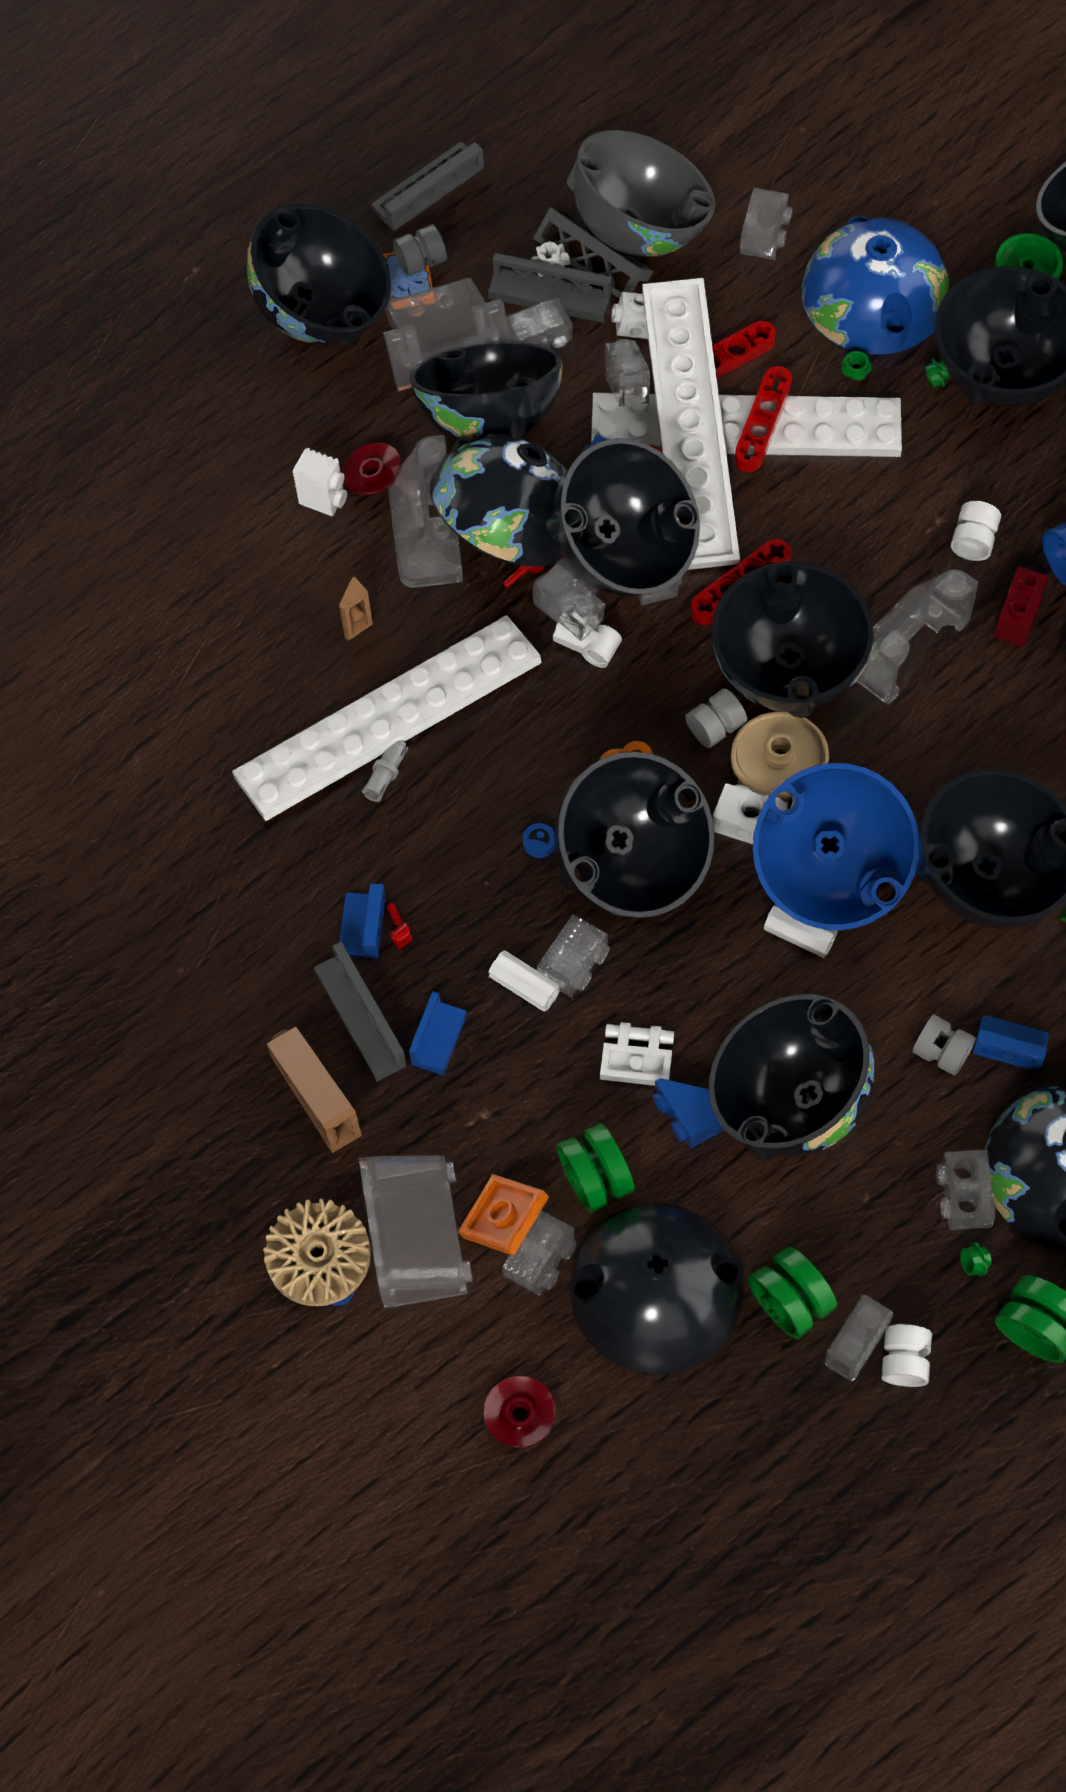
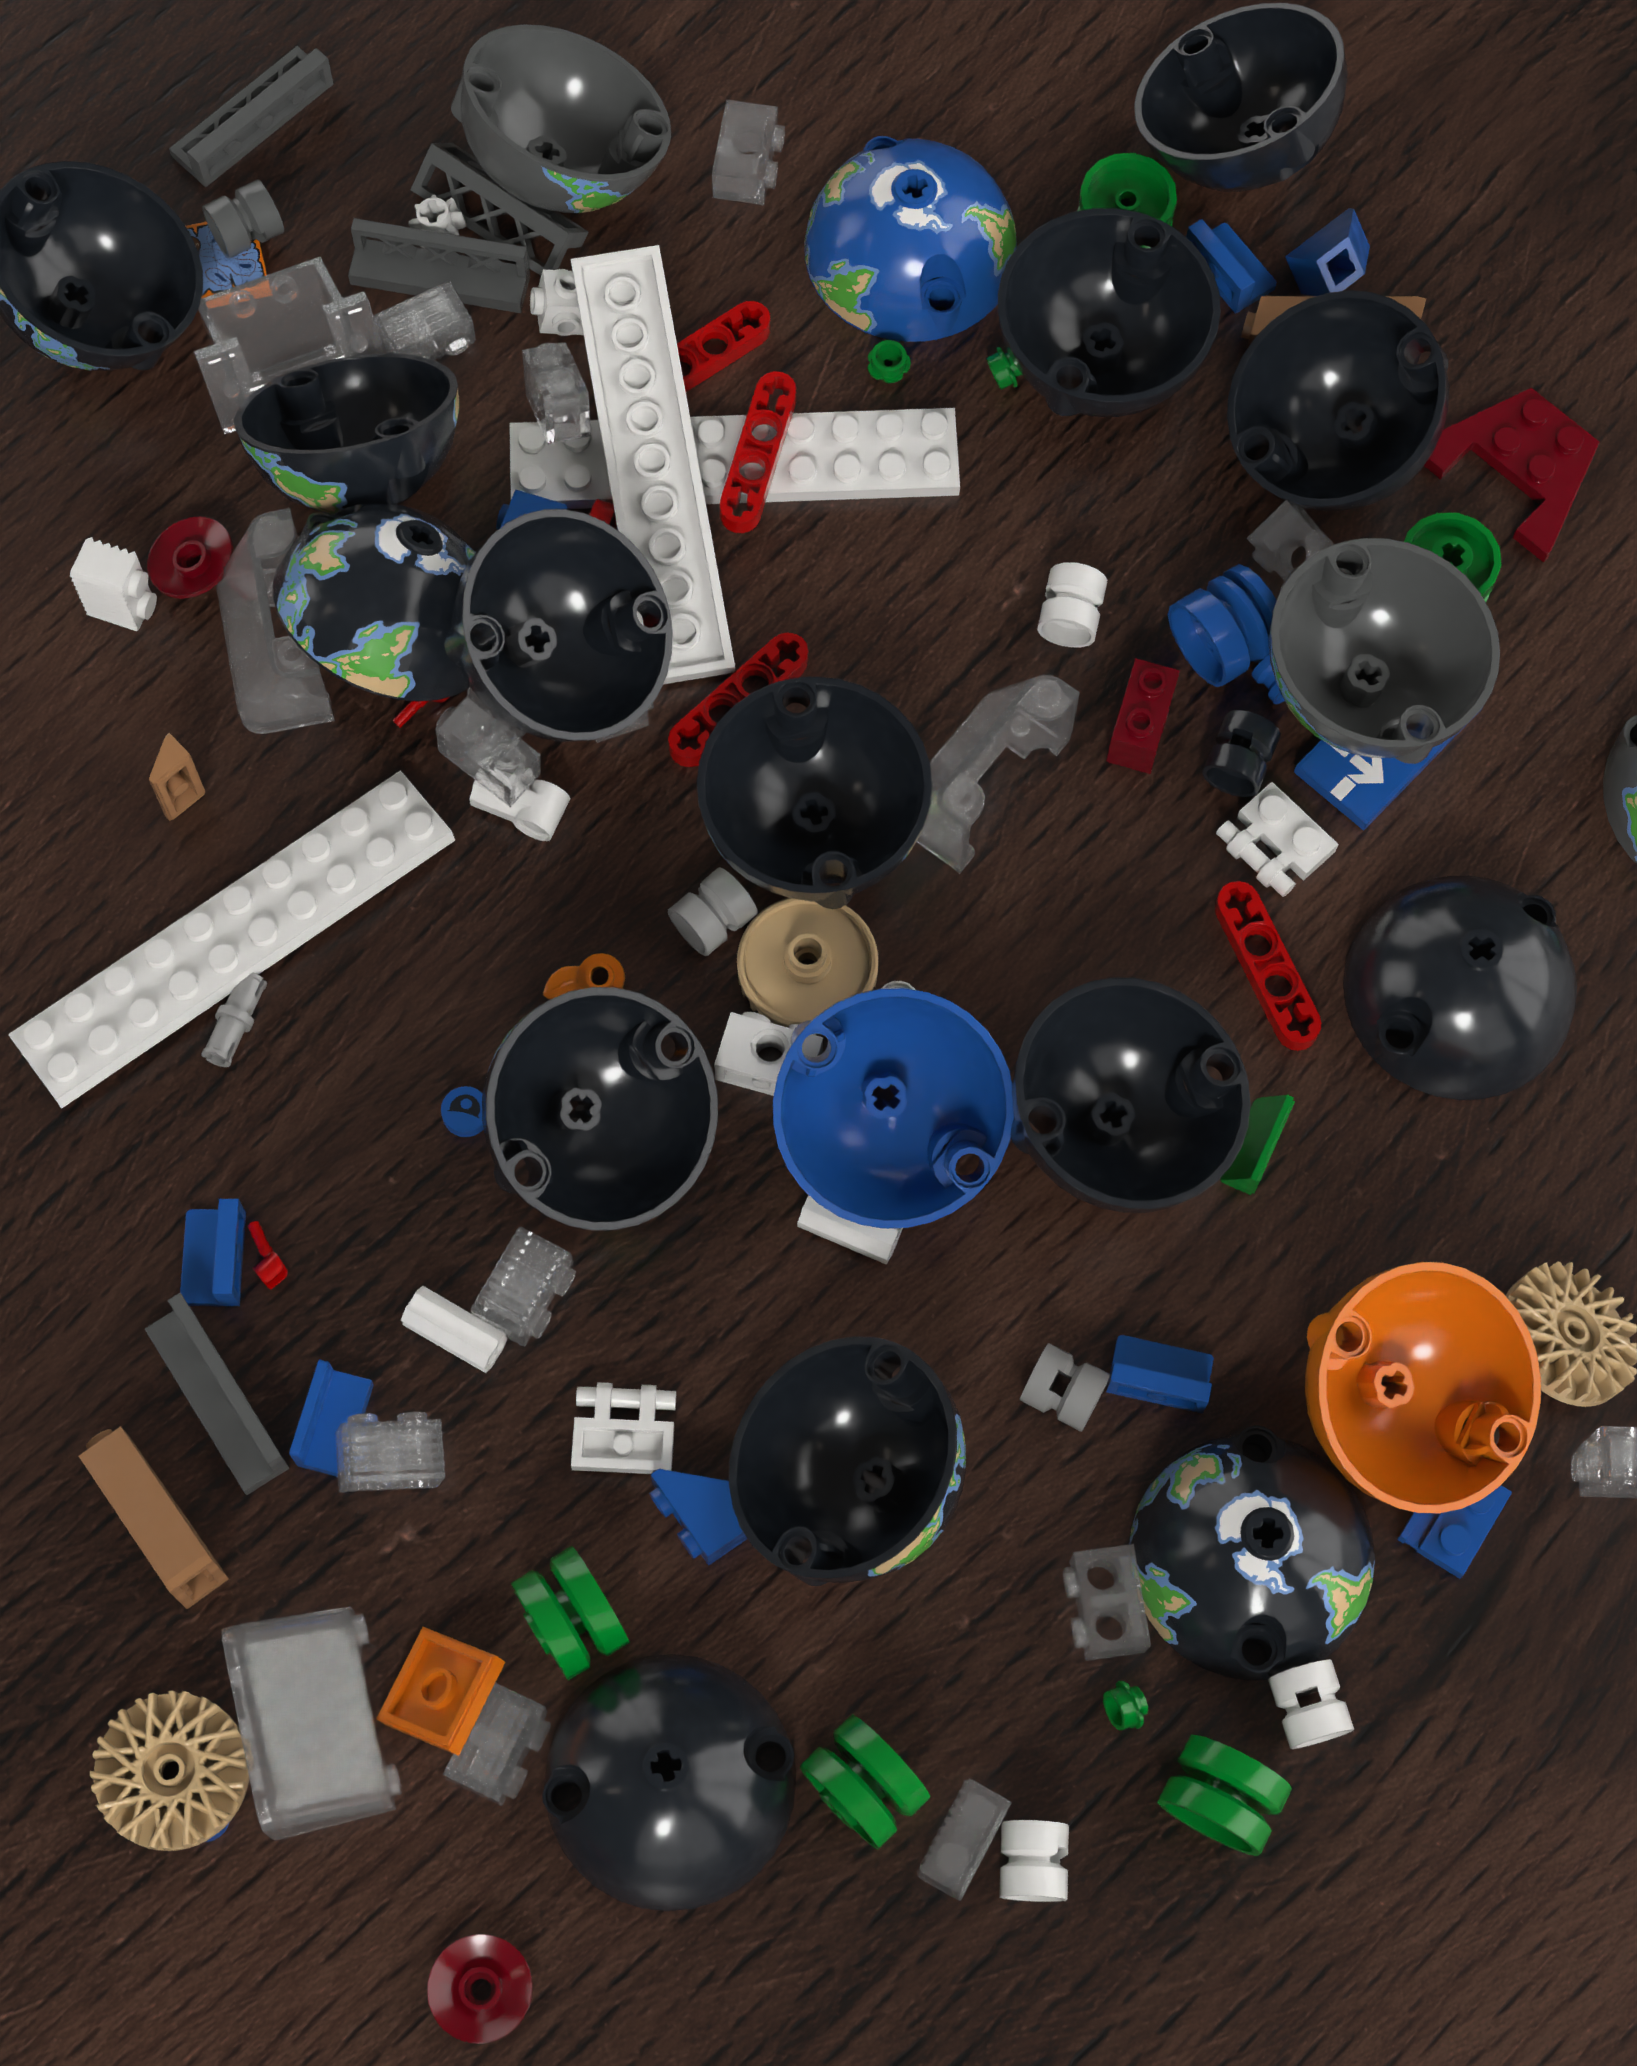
camera: 10 degrees left, 5 degrees up
(476, 1057) = (389, 1453): none -> clear brick

